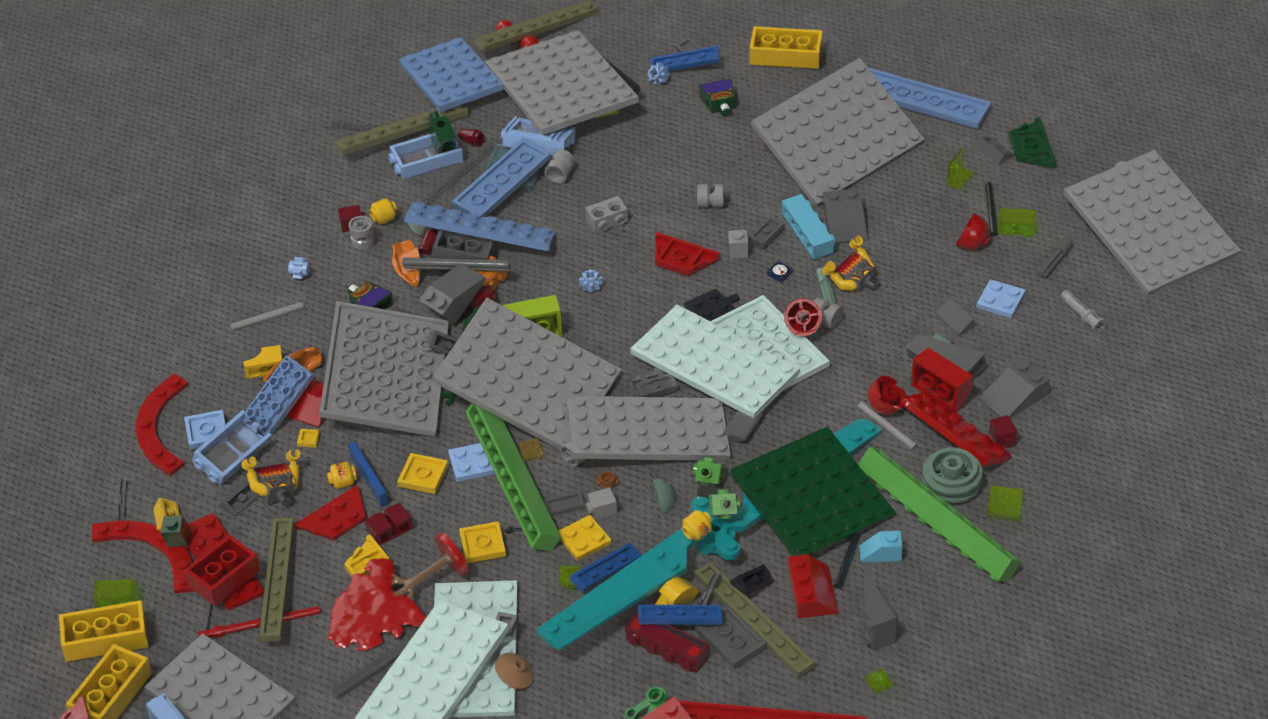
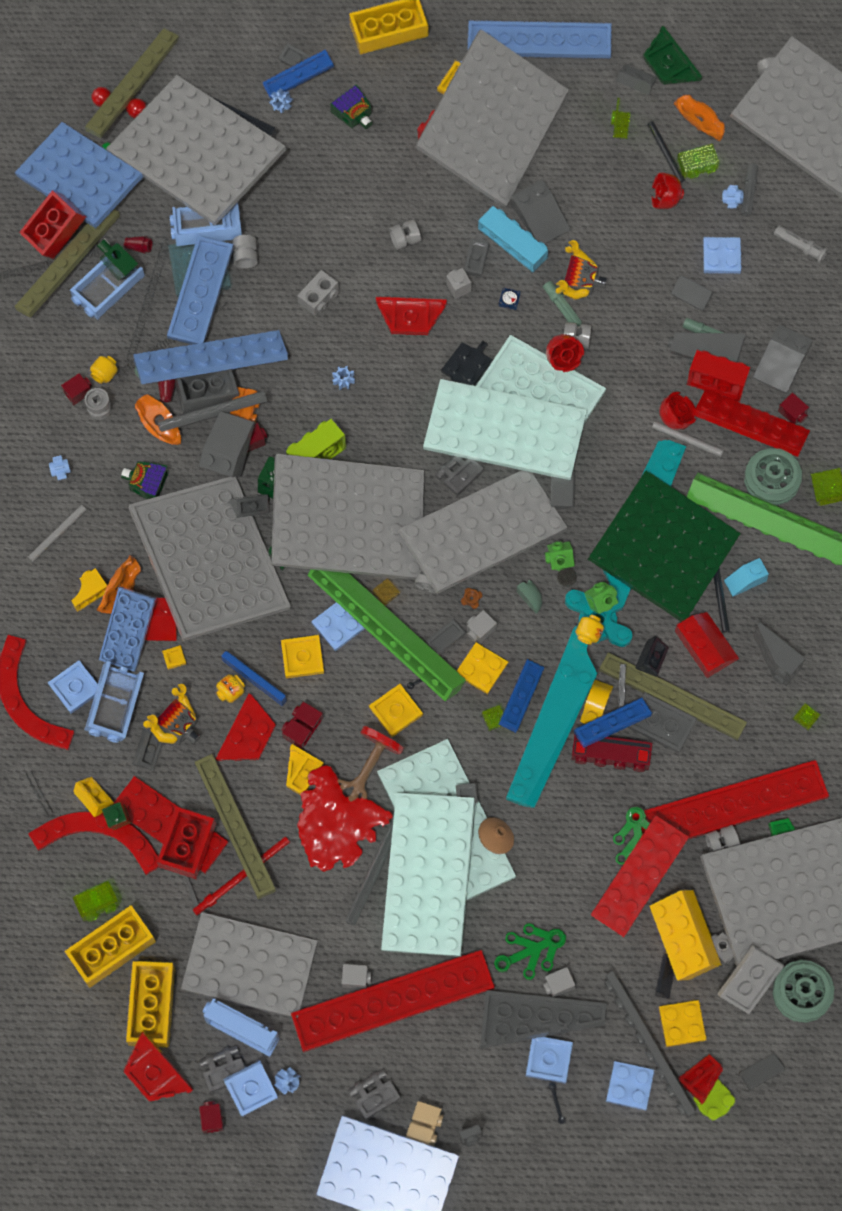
camera: 25 degrees left, 25 degrees up
(404, 96) = (52, 224): none -> red brick
(1032, 183) = (691, 108): none -> orange piece
(1035, 255) = (733, 196): none -> light blue gear

